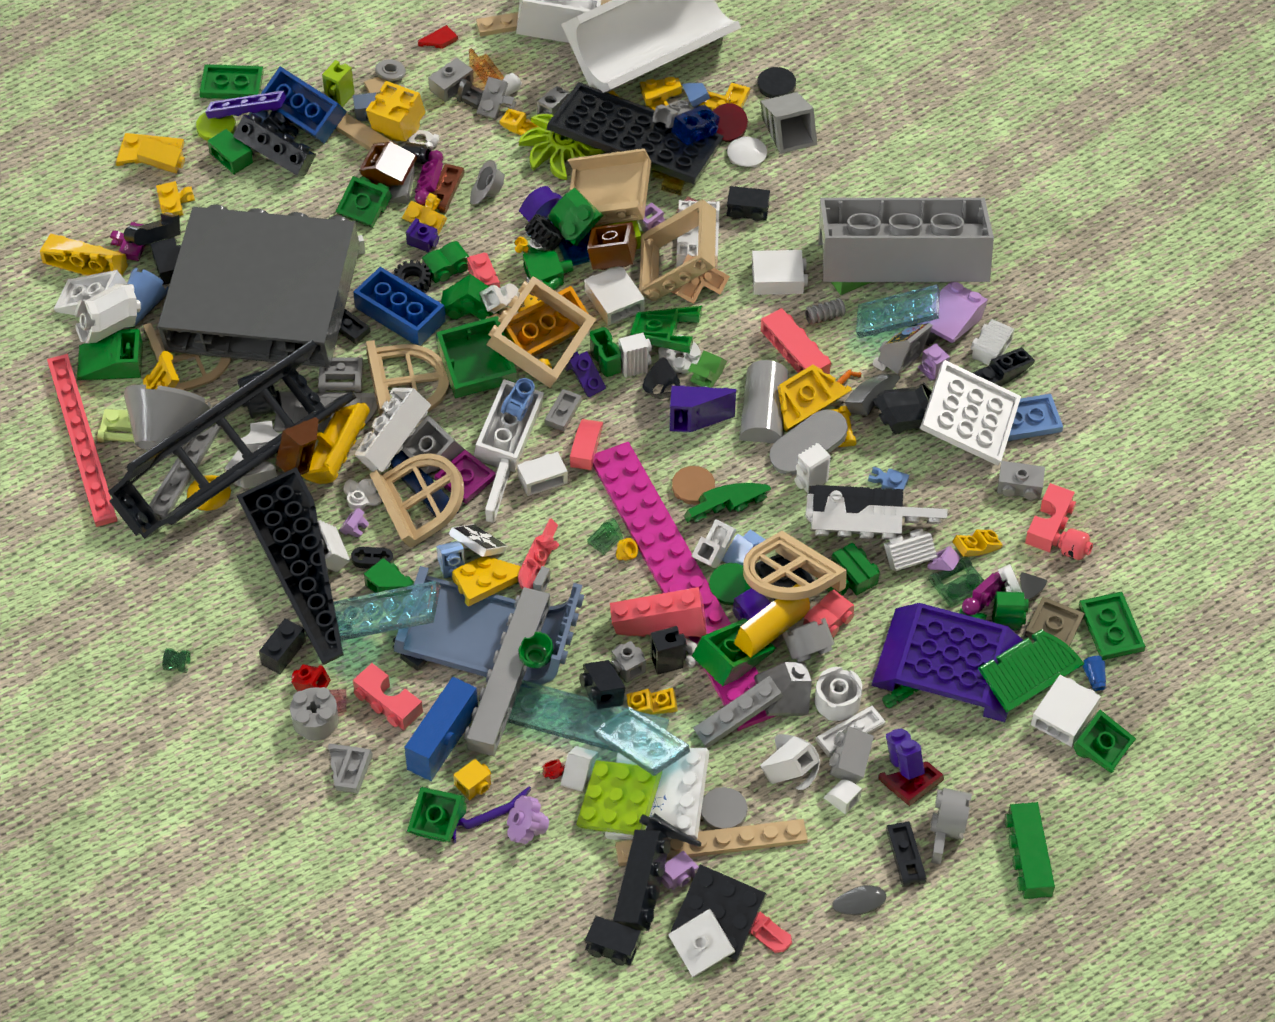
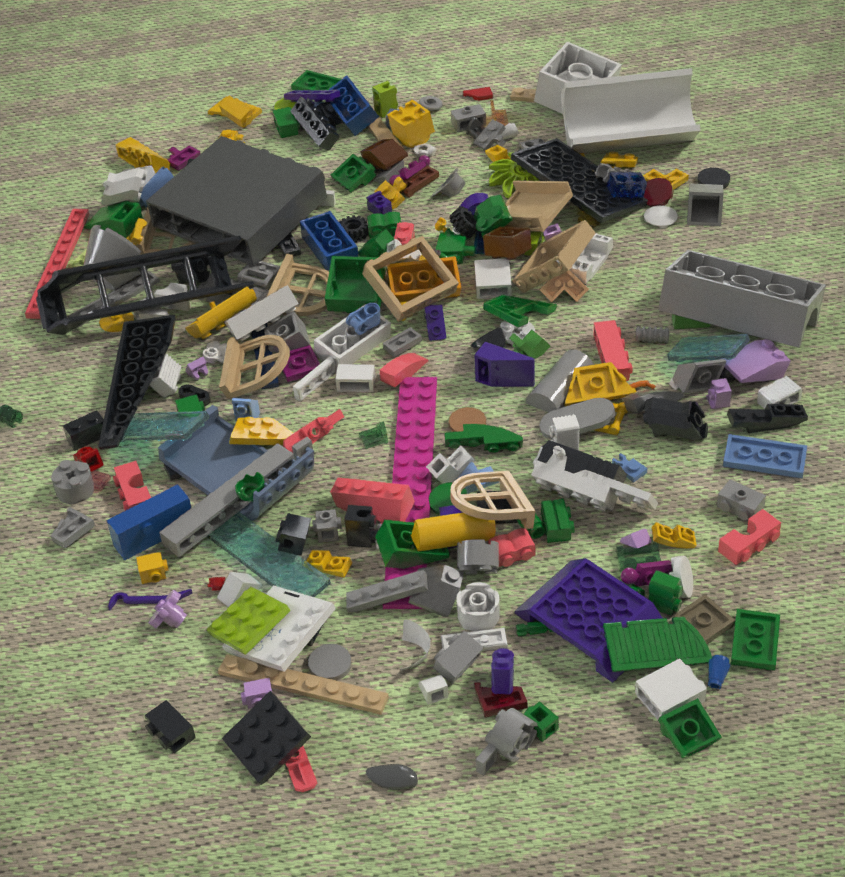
camera: 30 degrees right, 10 degrees down
(155, 231) = (185, 151): black leg -> none
(298, 446) = (188, 302): reddish brown slope -> none
(420, 150) = (413, 153): black brick -> none
(436, 814) = (106, 581): green slope -> none
(478, 540) = (274, 405): tile -> none
(605, 352) = (458, 311): green brick -> none
(626, 549) = (383, 448): yellow tile -> none
(634, 354) = (477, 318): white brick -> none
(641, 741) = (288, 582): clear light blue plate -> none
(642, 879) = (220, 687): black brick -> none
(657, 823) = (257, 649): black piece -> none
(696, 93) = (644, 167): medium blue tile -> none
(701, 943) = (235, 755): white plate -> none
(748, 203) = (637, 247): black brick -> none
(778, 272) = (631, 298): white brick -> none
(789, 761) = (402, 643): white slope -> none
(906, 853) = (456, 754): black plate -> none
(910, 550) = (609, 520): white brick -> none
(967, 783) = (546, 720): none -> green brick
(970, 412) = (722, 434): white plate -> none
(1030, 850) = (566, 794): green brick -> none
(1031, 585) = (699, 581): dark grey tile -> none
(1075, 544) = (759, 564): coral head -> none

